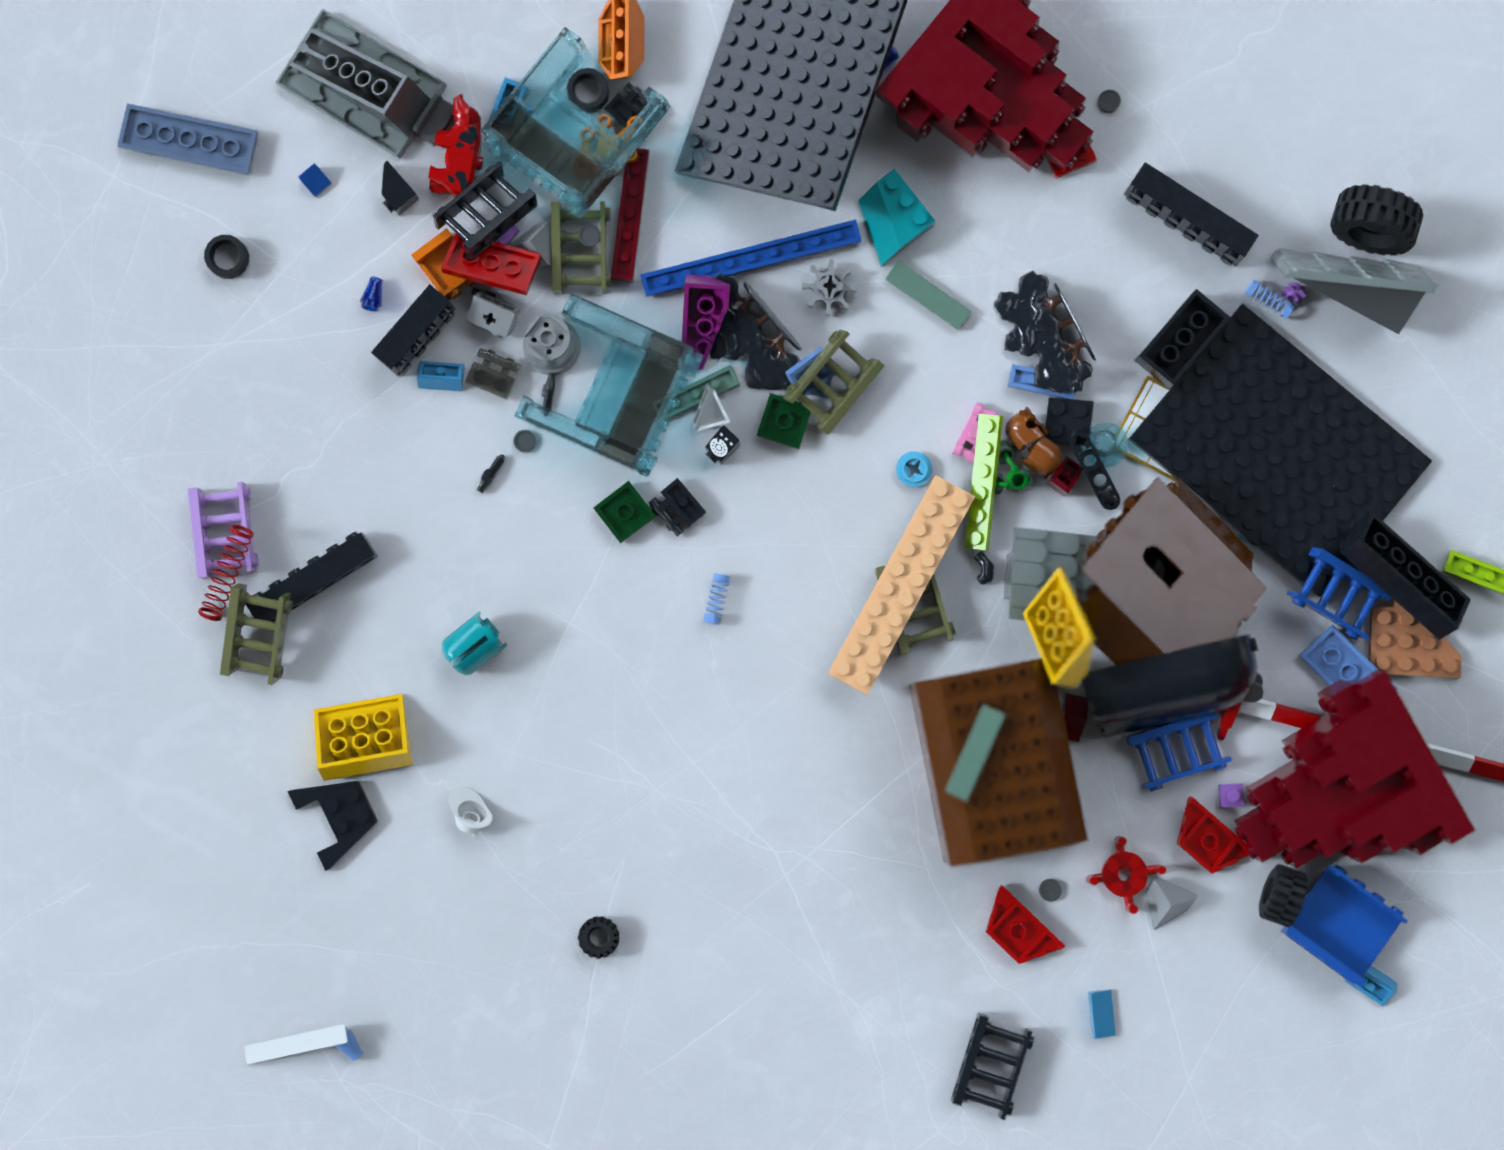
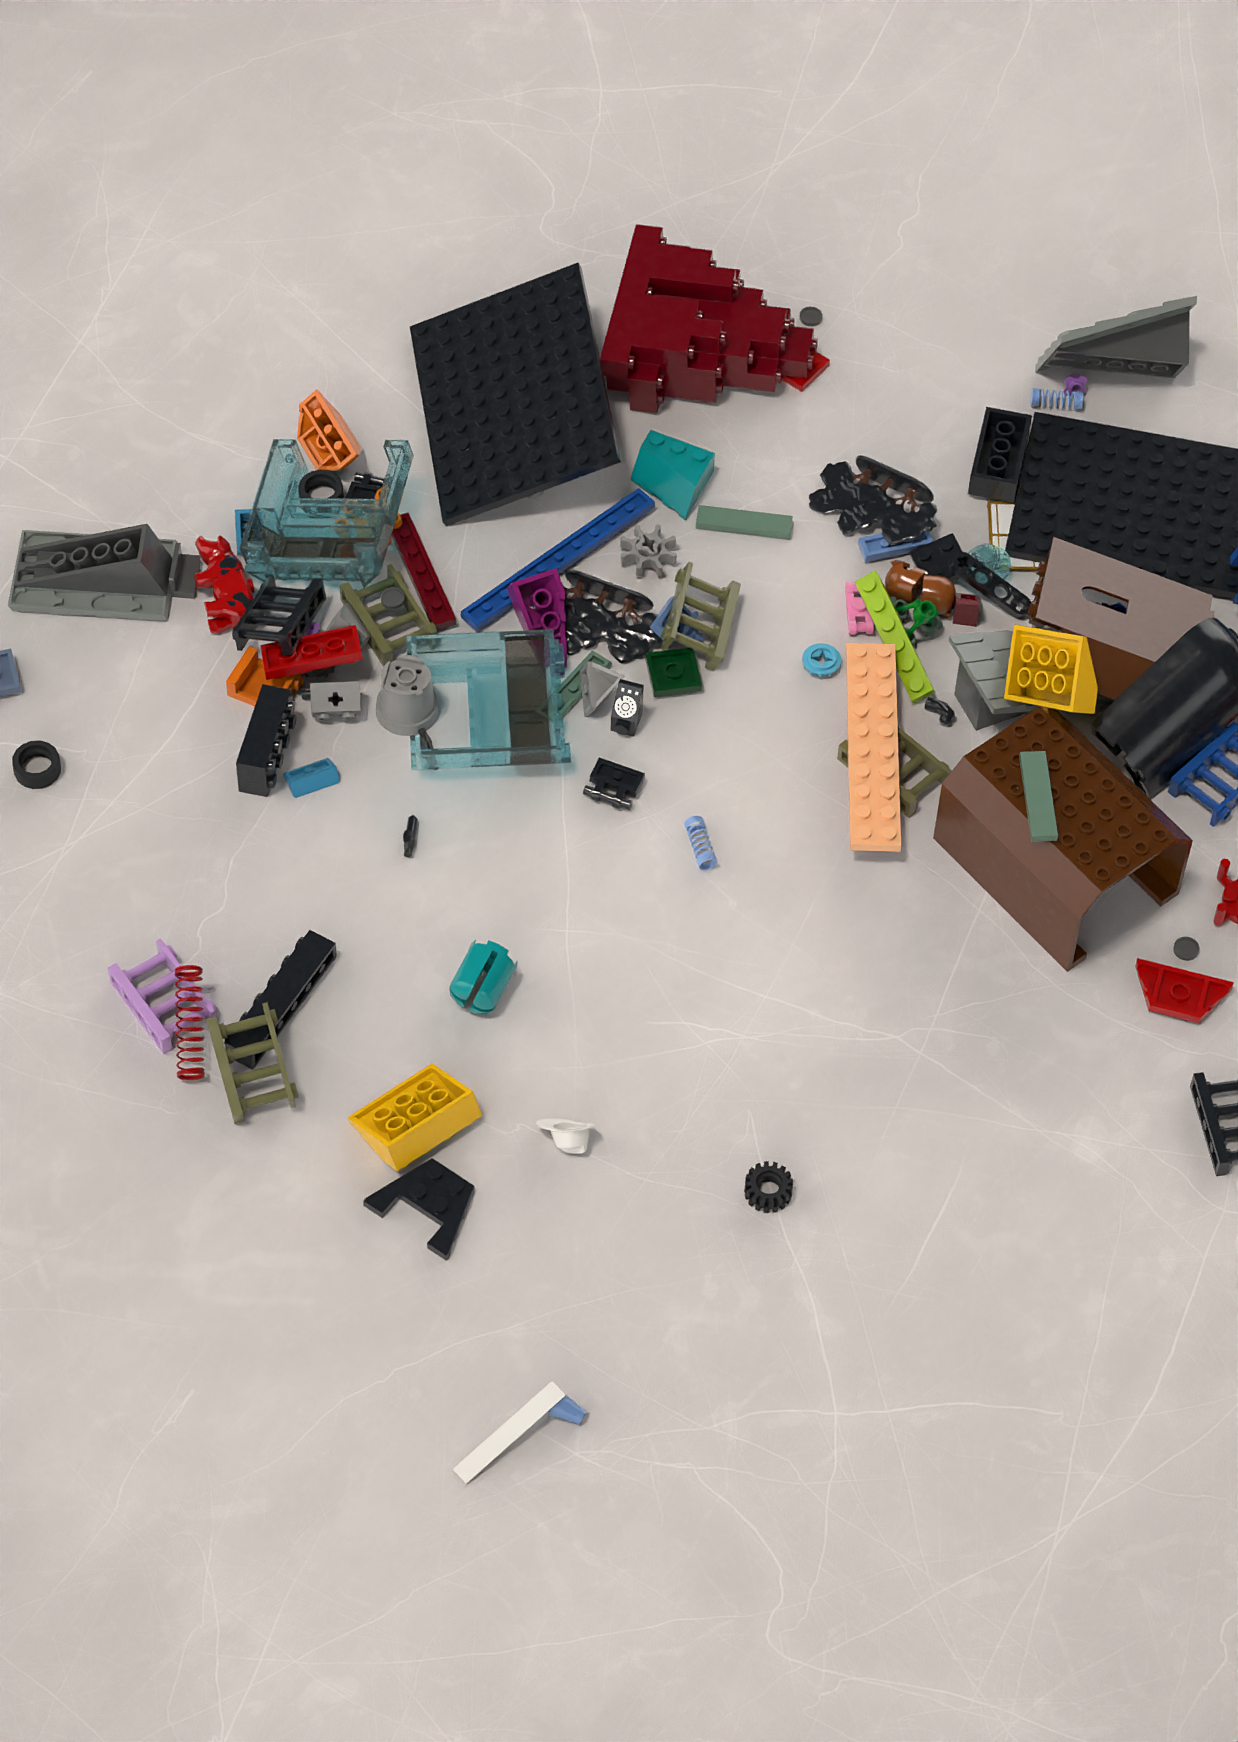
camera: 30 degrees left, 30 degrees down
(314, 180) = (90, 668): blue slope -> none
(372, 296) = (204, 737): clear blue cone -> none
(396, 191) = (180, 641): black slope -> none
(491, 380) = (363, 757): clear smoke plate -> none
(524, 441) = (427, 796): dark grey piece -> none
(624, 512) = (564, 809): dark green plate -> none
(1190, 215) = (942, 359): black brick -> none
(1376, 219) = (1103, 270): black tyre -> none

